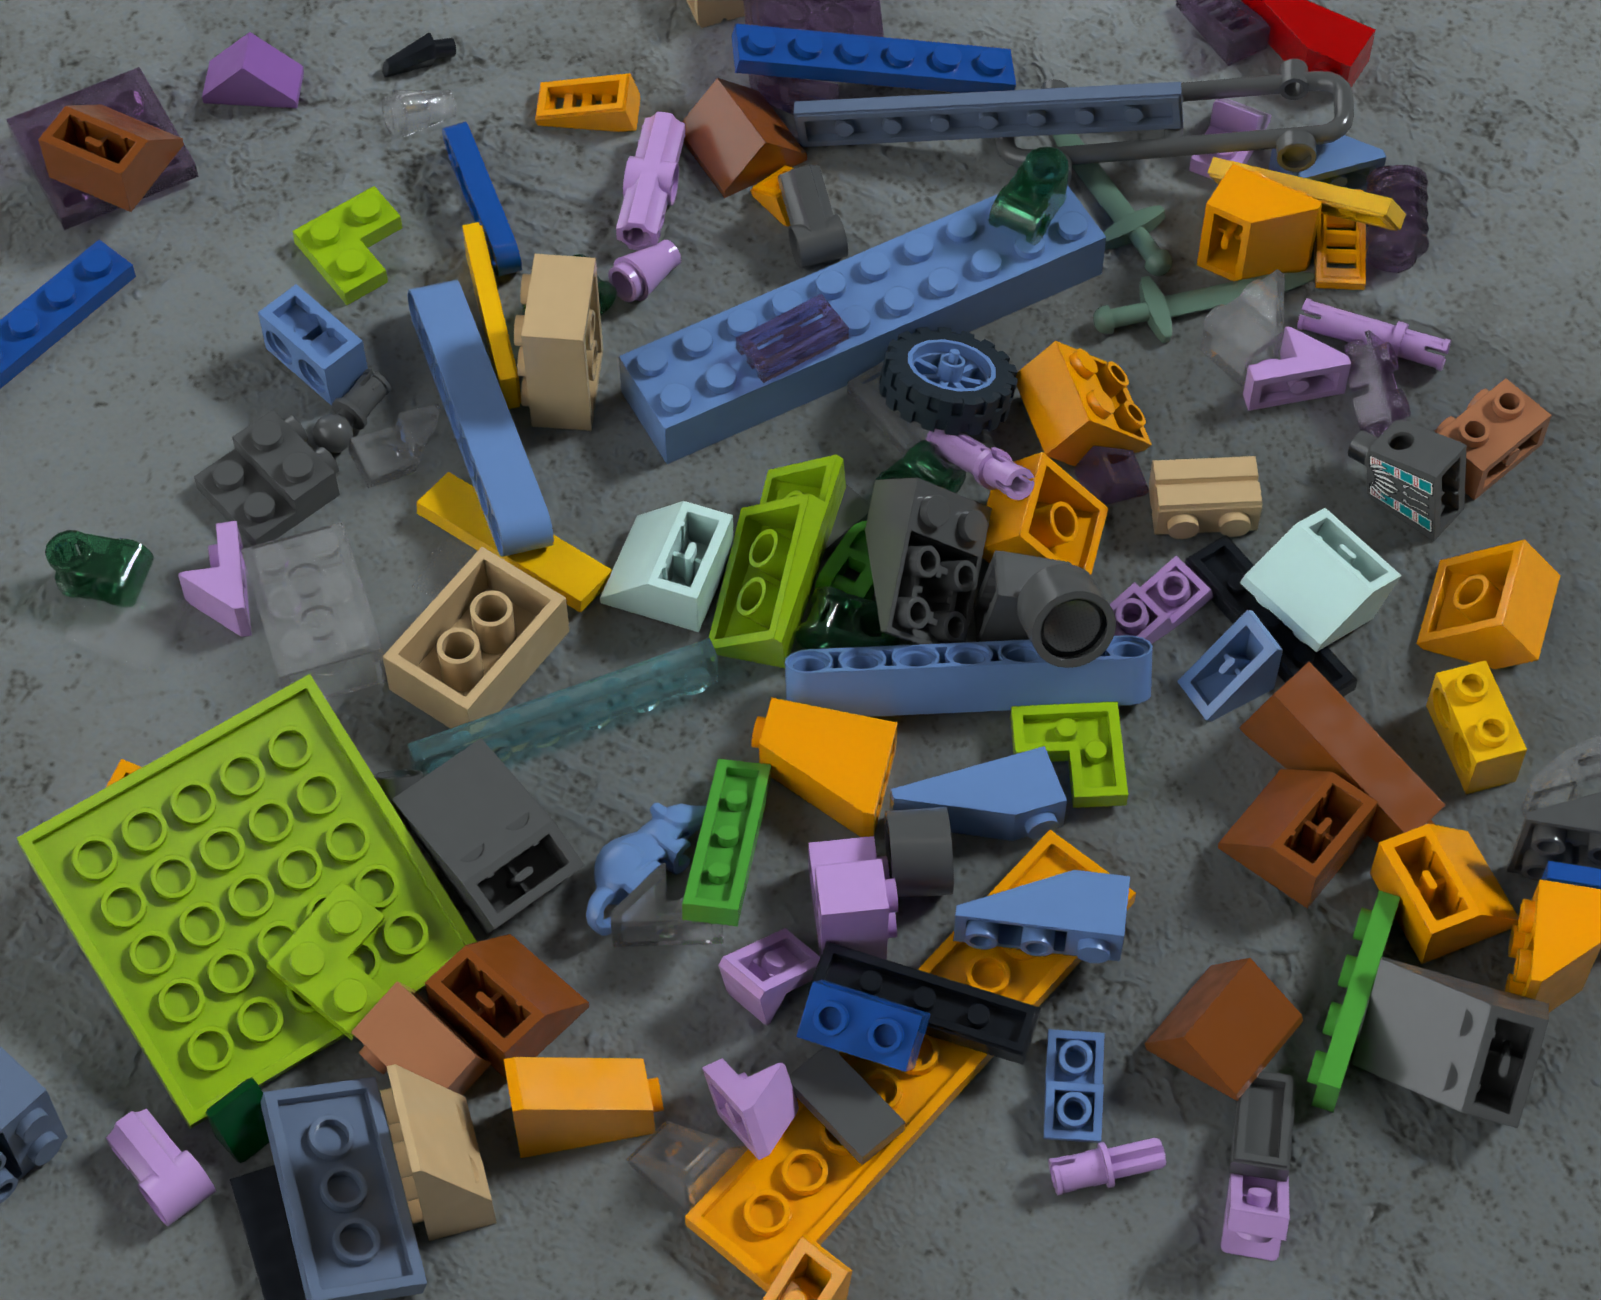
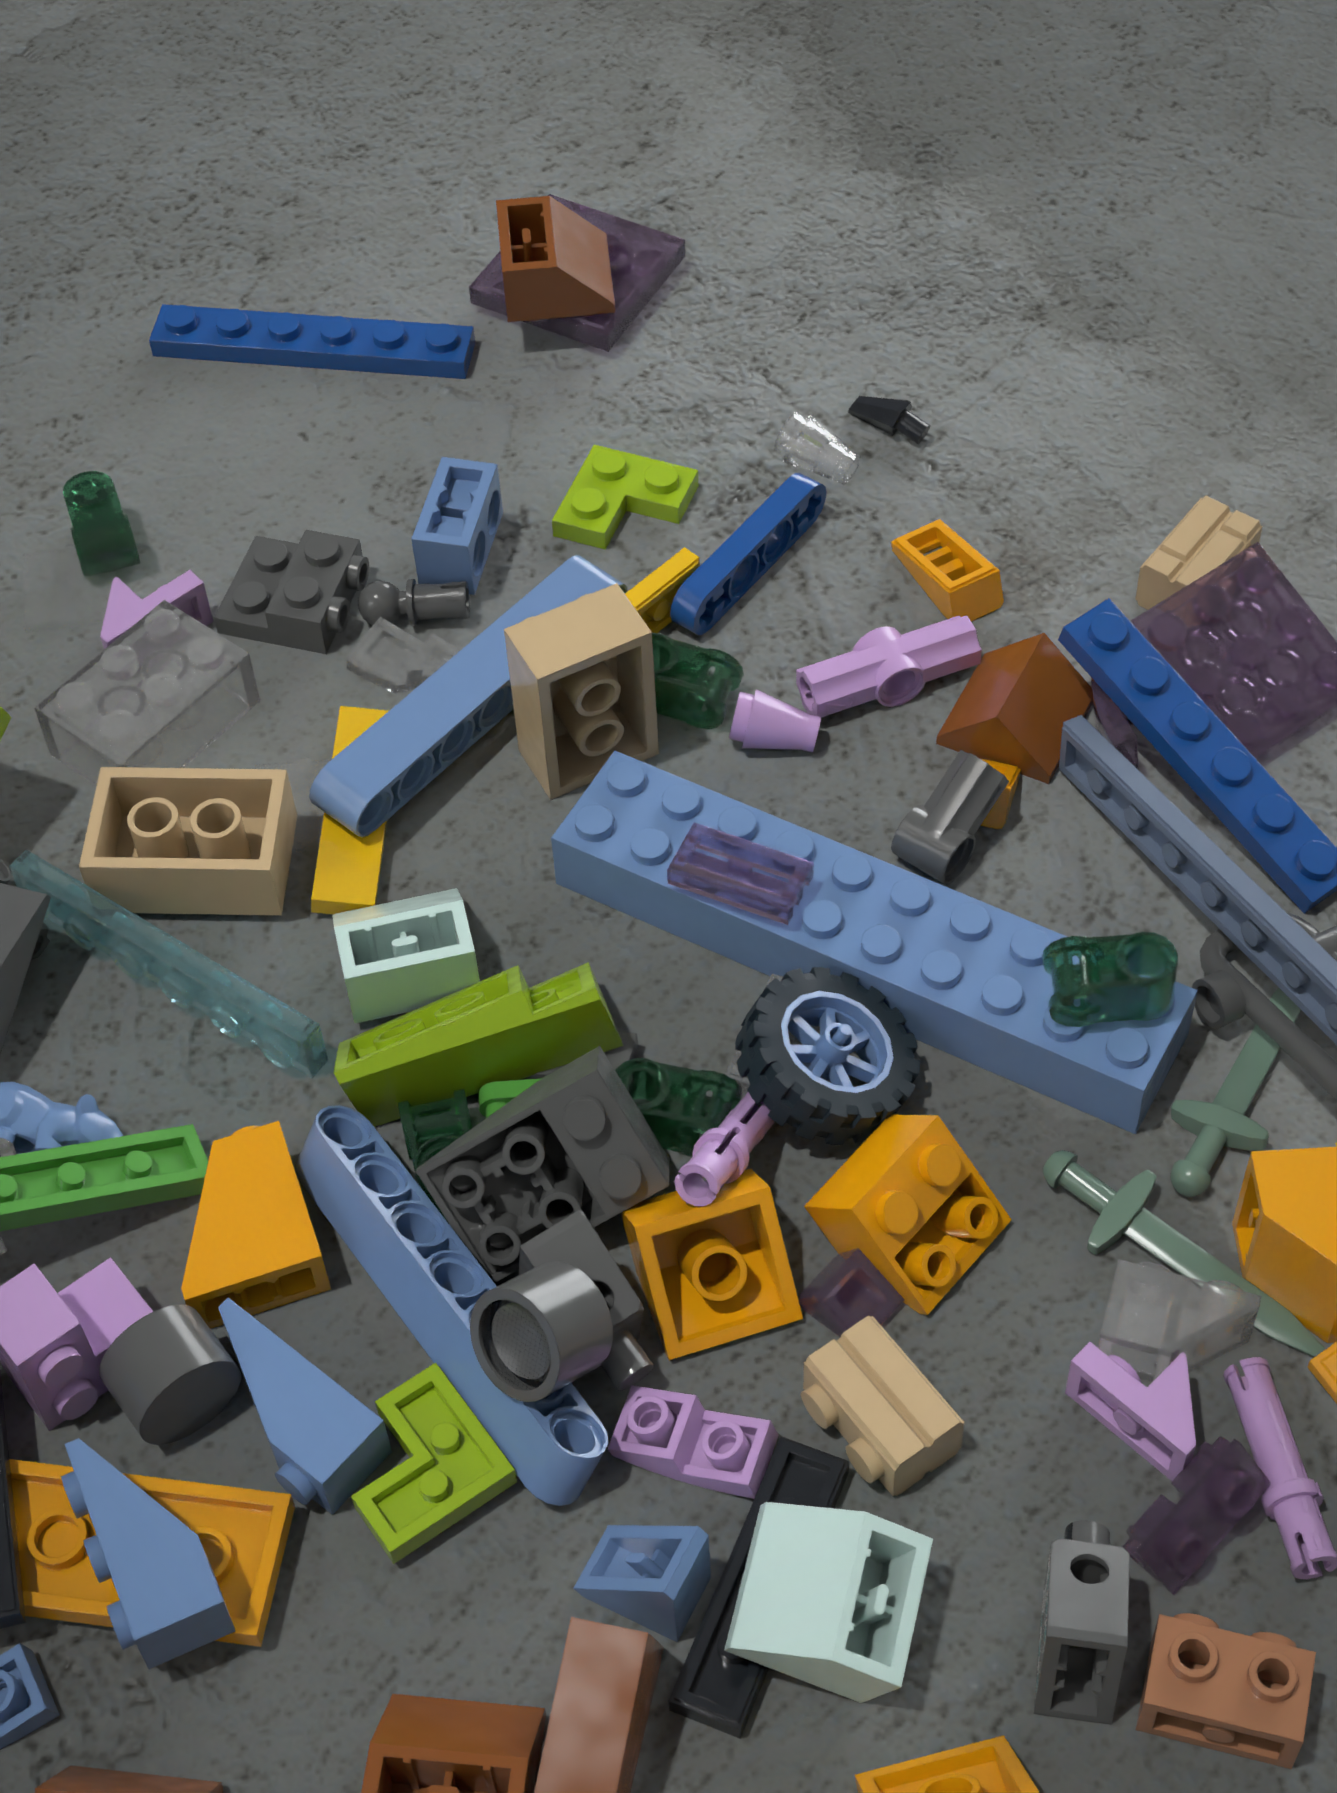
camera: 60 degrees right, 5 degrees down
(253, 75) = (755, 324): medium lavender slope -> none

